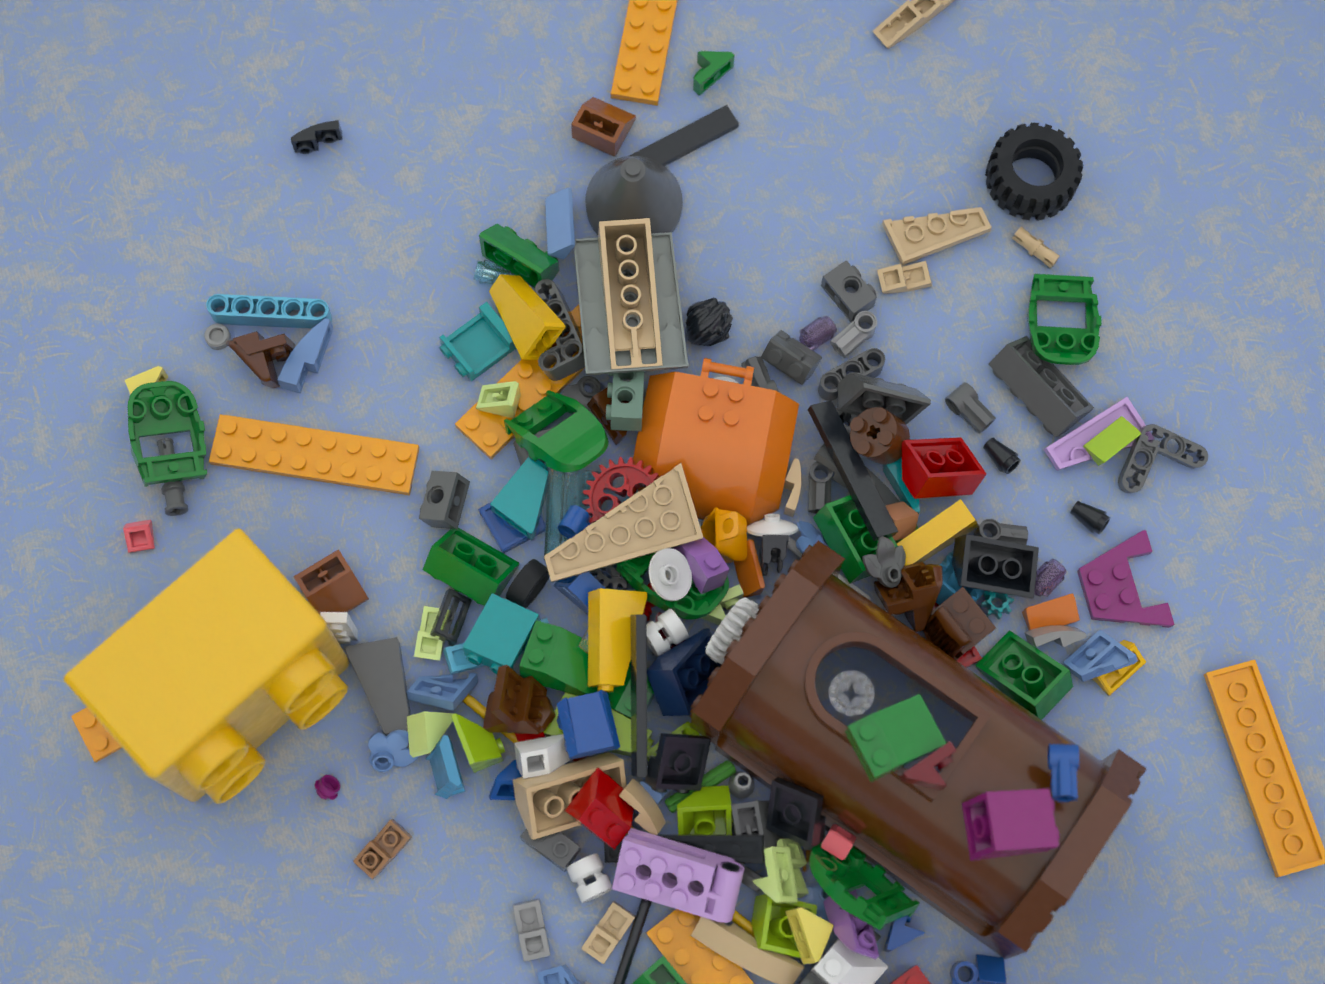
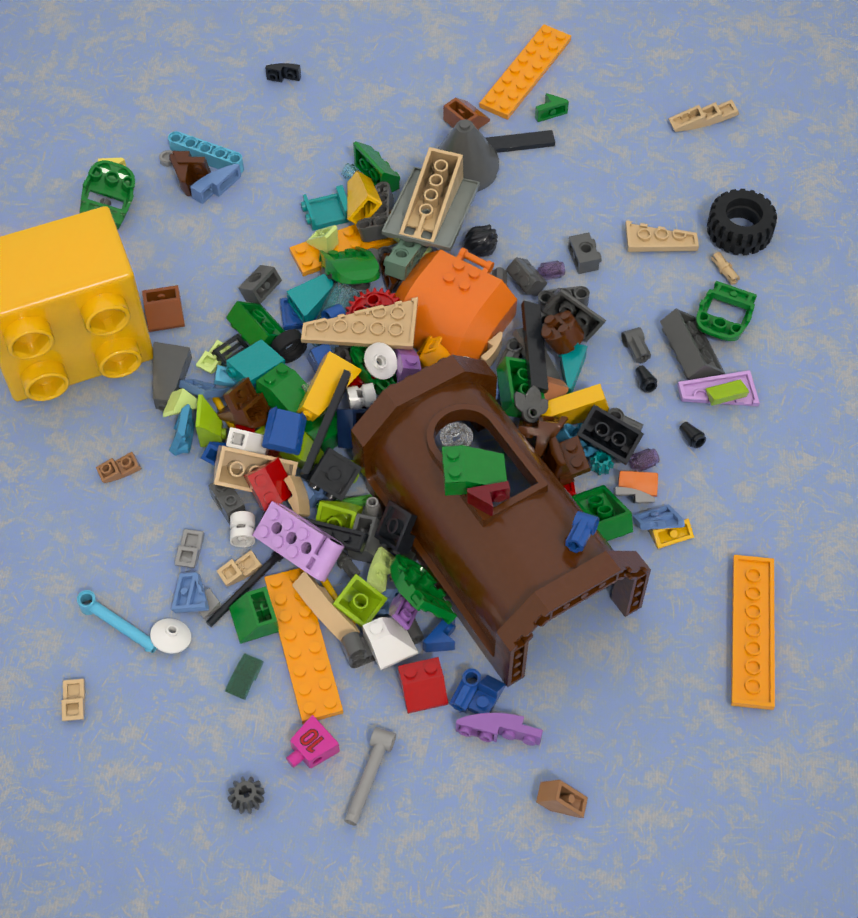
camera: 25 degrees right, 15 degrees down
(314, 454) = (194, 238): light orange plate -> none
(327, 787) = (102, 419): magenta plate -> none
(341, 626) = (155, 324): white plate -> none
(389, 750) = (154, 409): medium blue plate -> none
(560, 223) = (410, 158): medium blue slope -> none
(780, 880) = (368, 563): yellowish green slope -> none
(809, 933) = (372, 605): light yellow slope -> none
(838, 842) = (419, 559): coral slope -> none
(853, 334) = (580, 277): light grey piece -> none
(903, 279) = (629, 260): tan slope -> none
(940, 468) = (596, 366): red slope -> none
(1010, 823) = (529, 546): magenta slope -> none
(1112, 590) = (688, 484): magenta wing -> none
(1151, 448) = (754, 406): dark grey beam -> none

